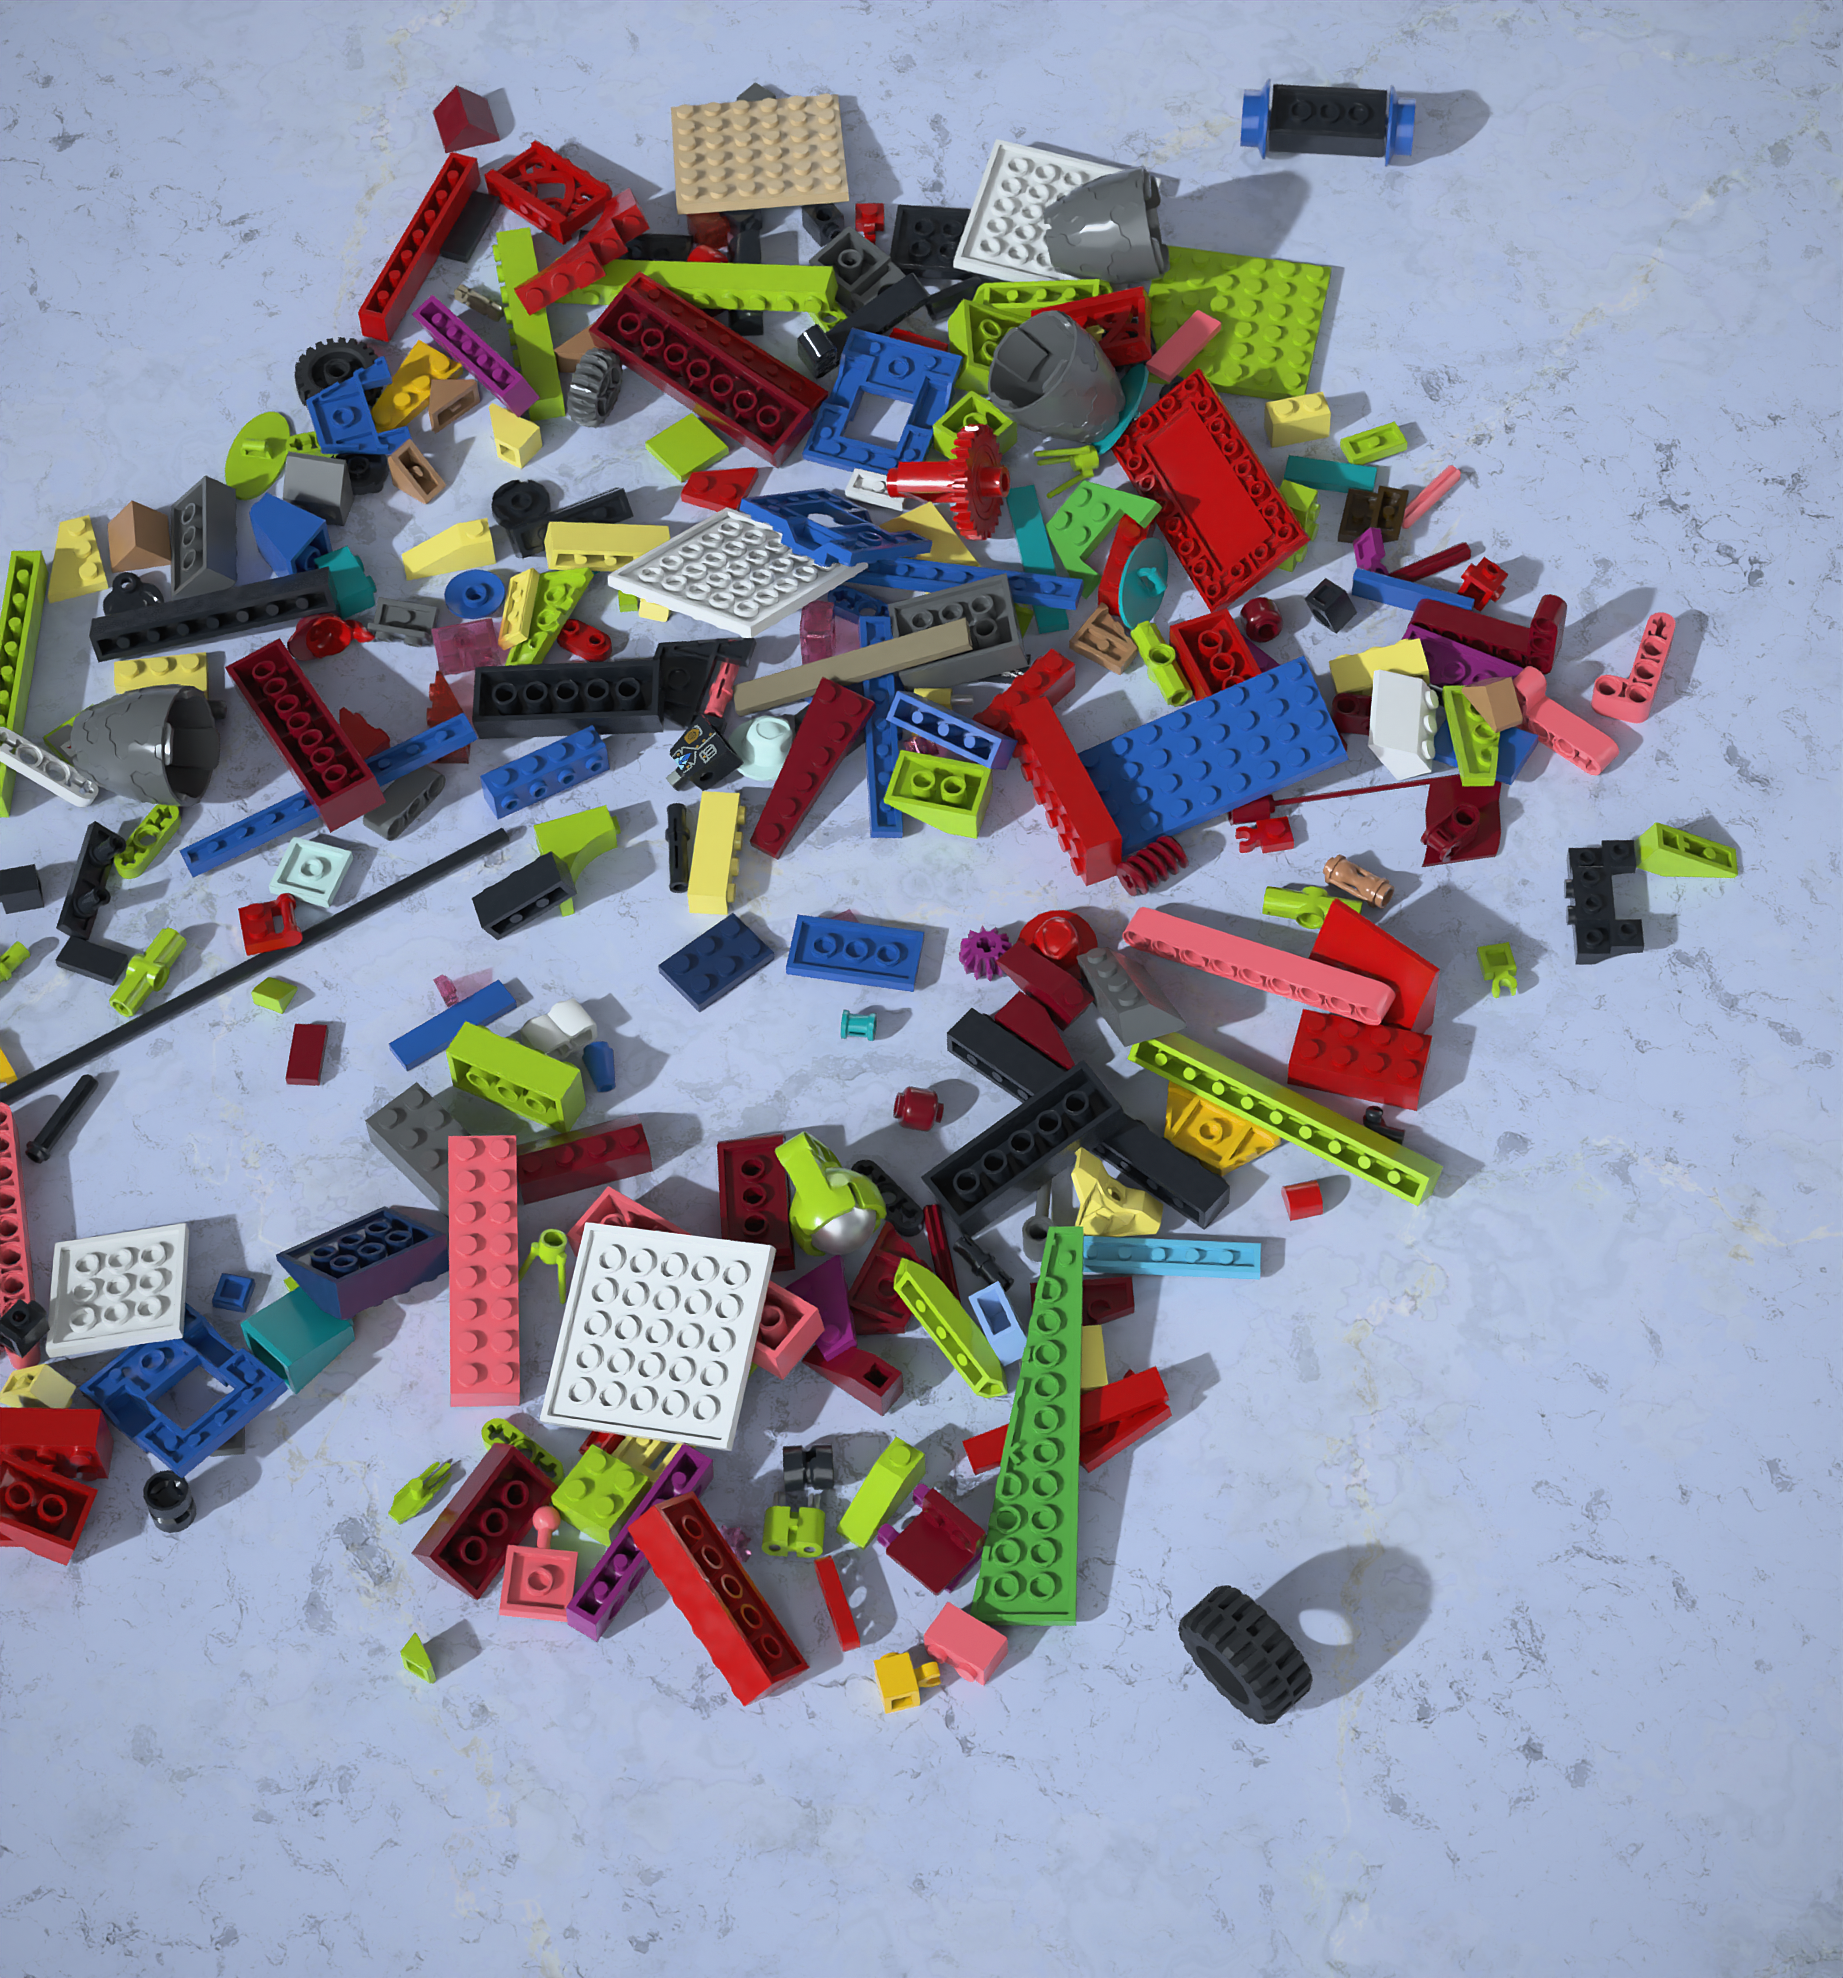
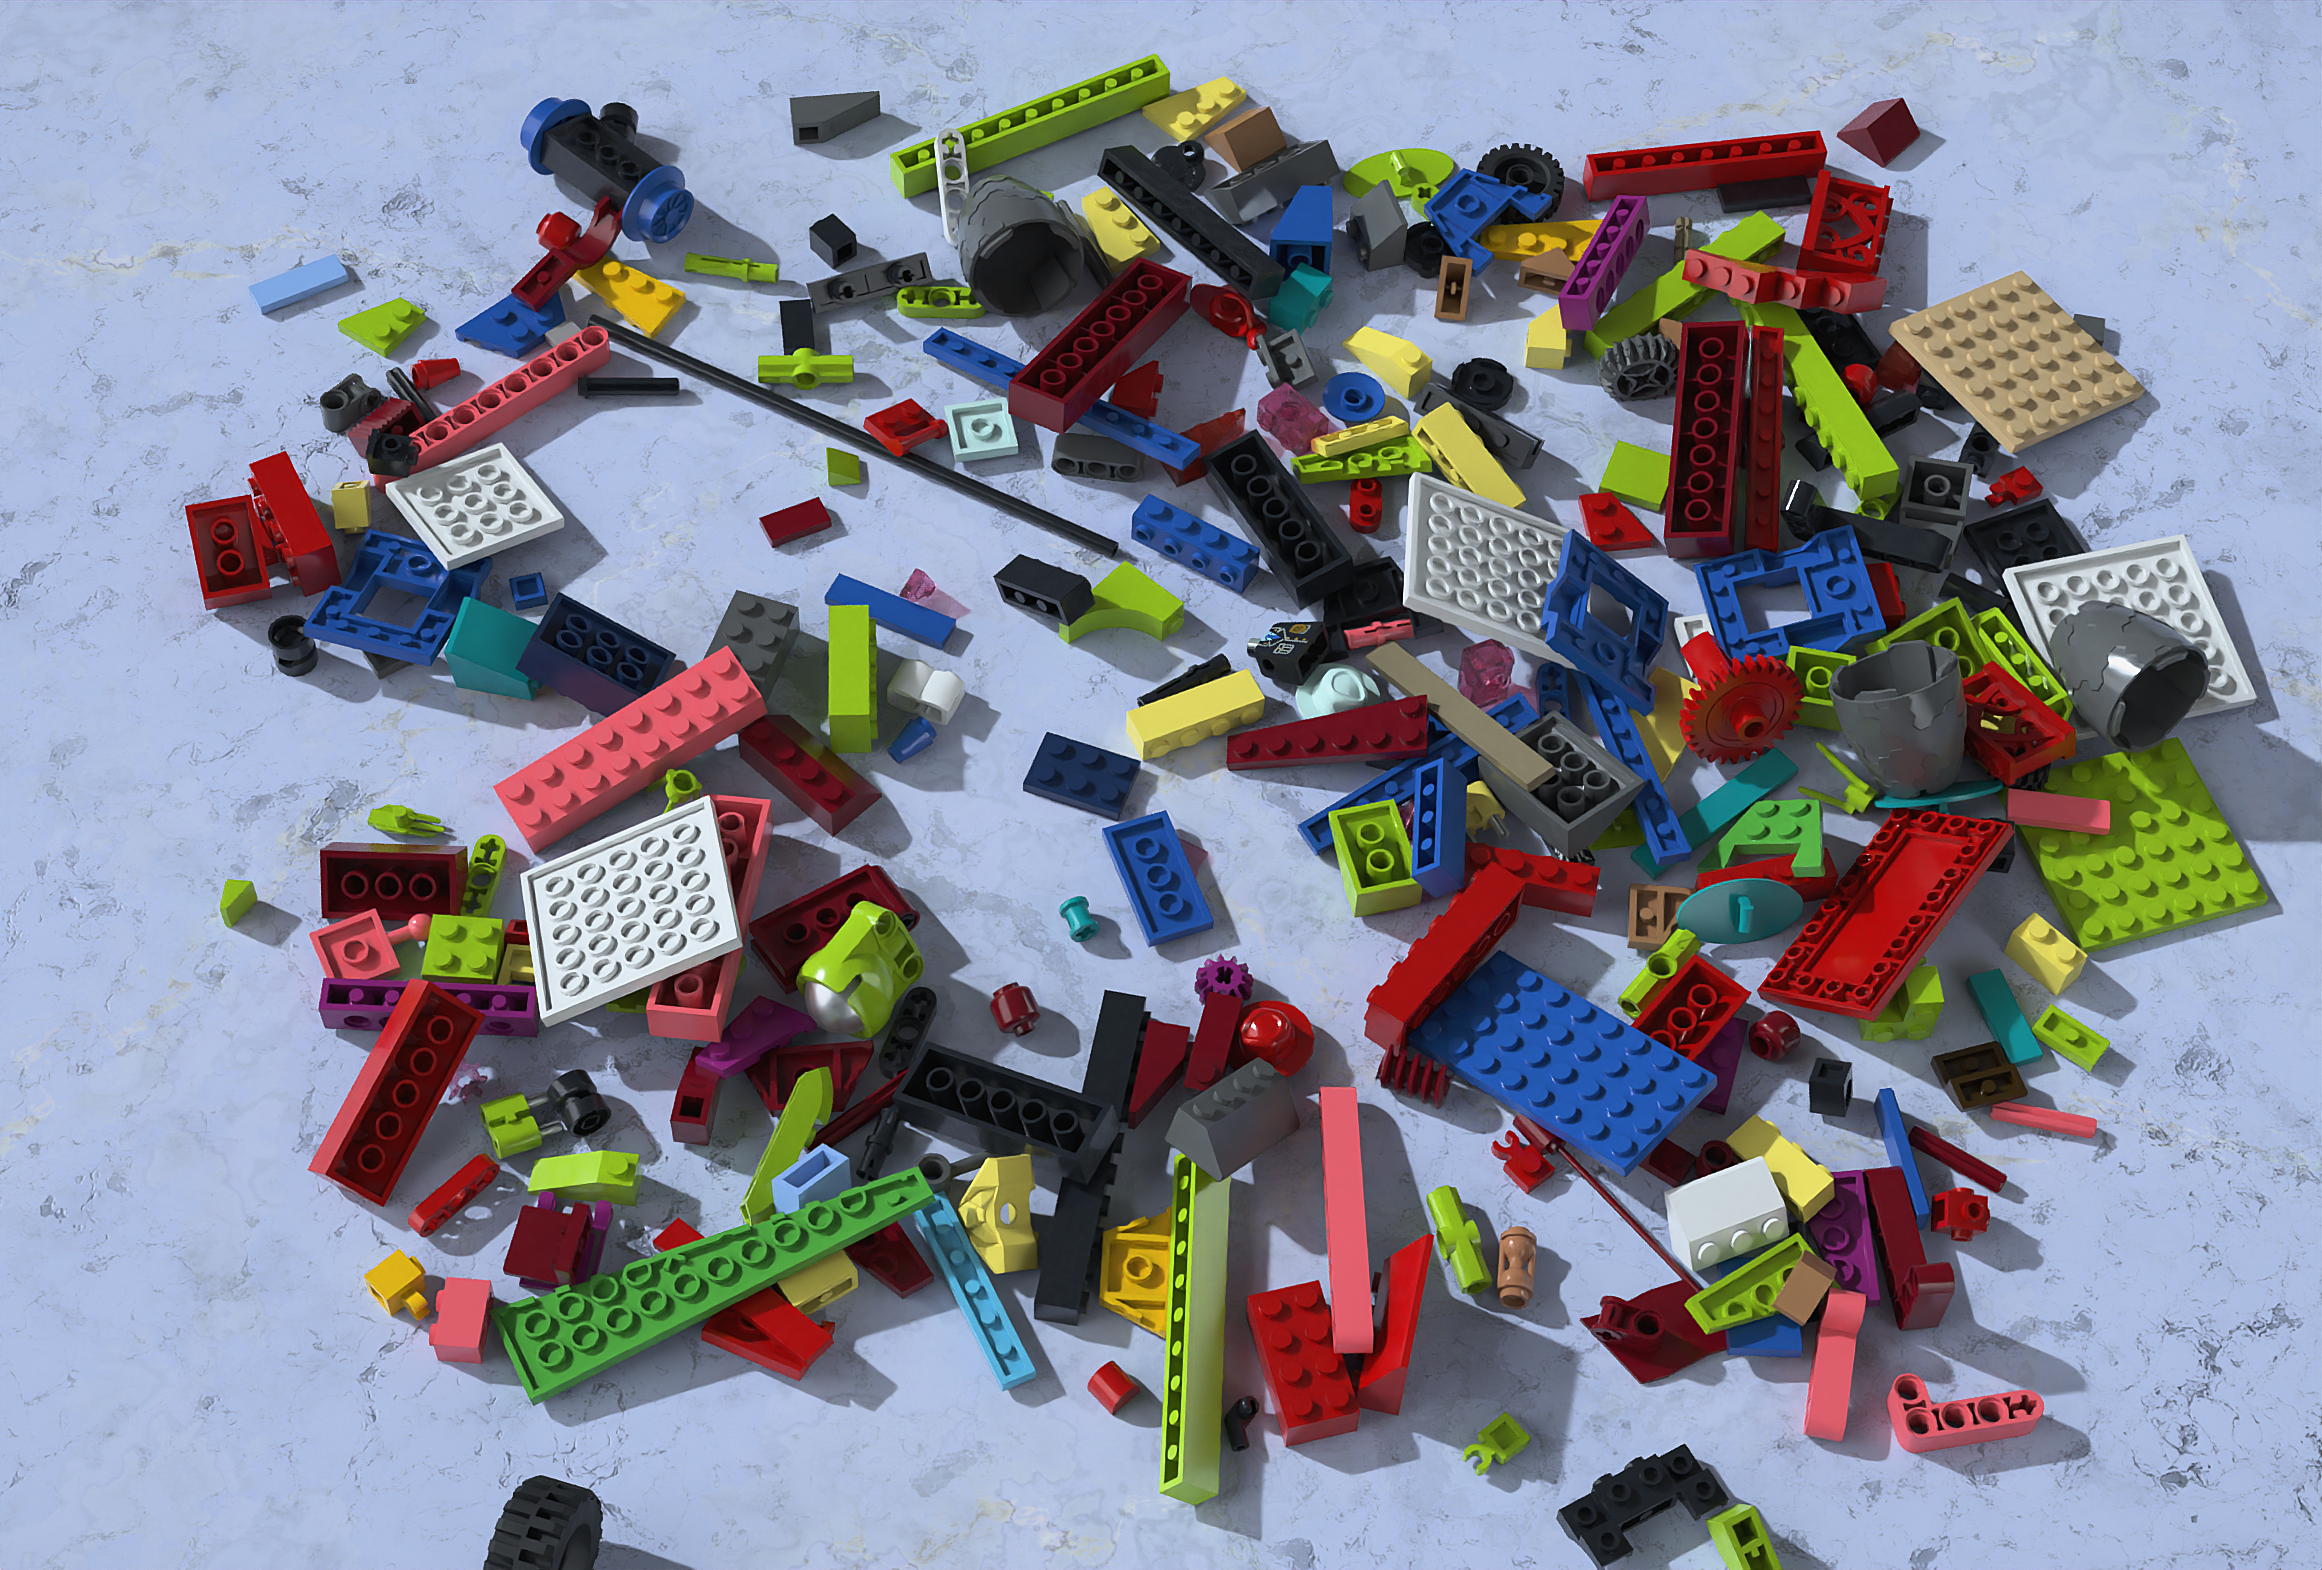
camera: 55 degrees right, 0 degrees up
(1369, 551) = (1927, 1095): magenta plate -> none

